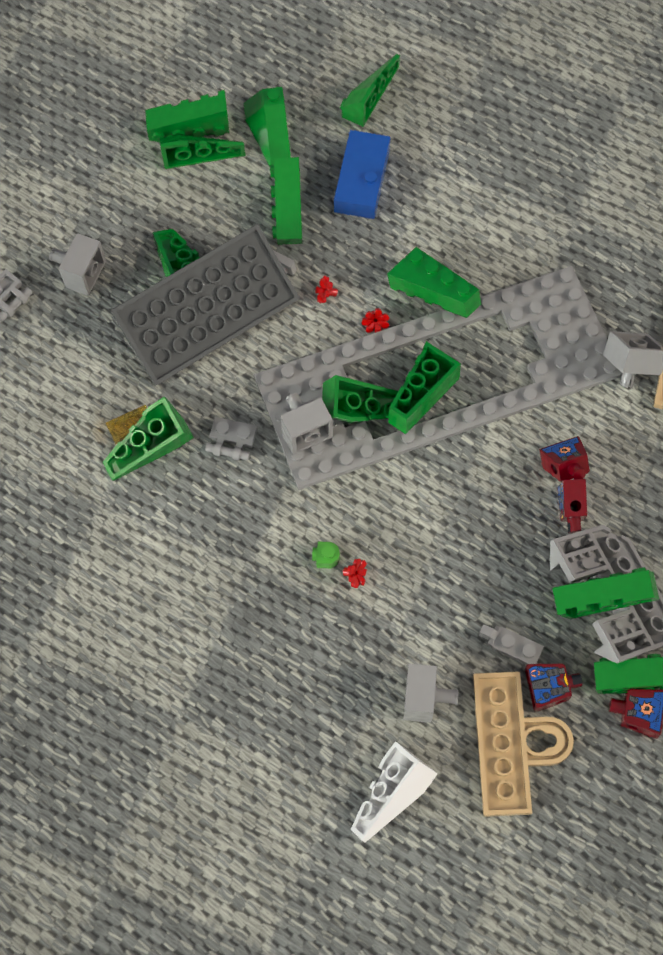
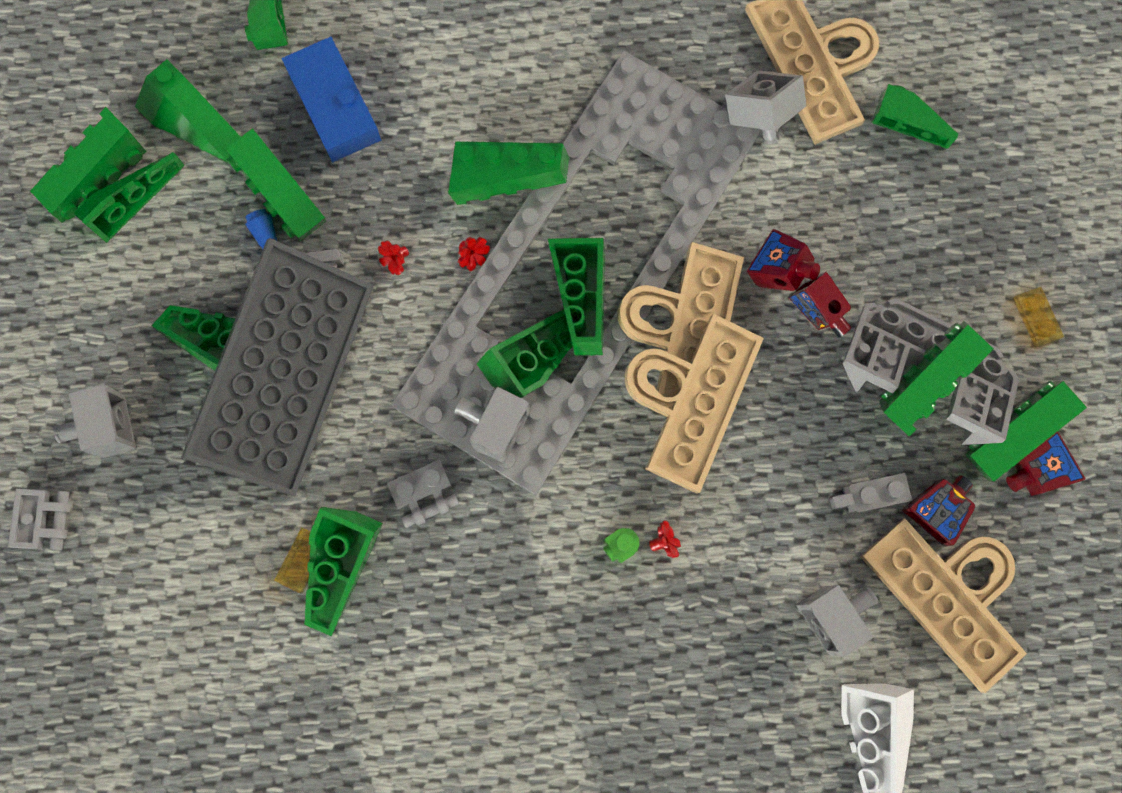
camera: 45 degrees left, 10 degrees up
(262, 217) = (261, 226): none -> blue cone
(445, 505) = (703, 402): none -> tan plate
(478, 464) = (705, 289): none -> tan plate

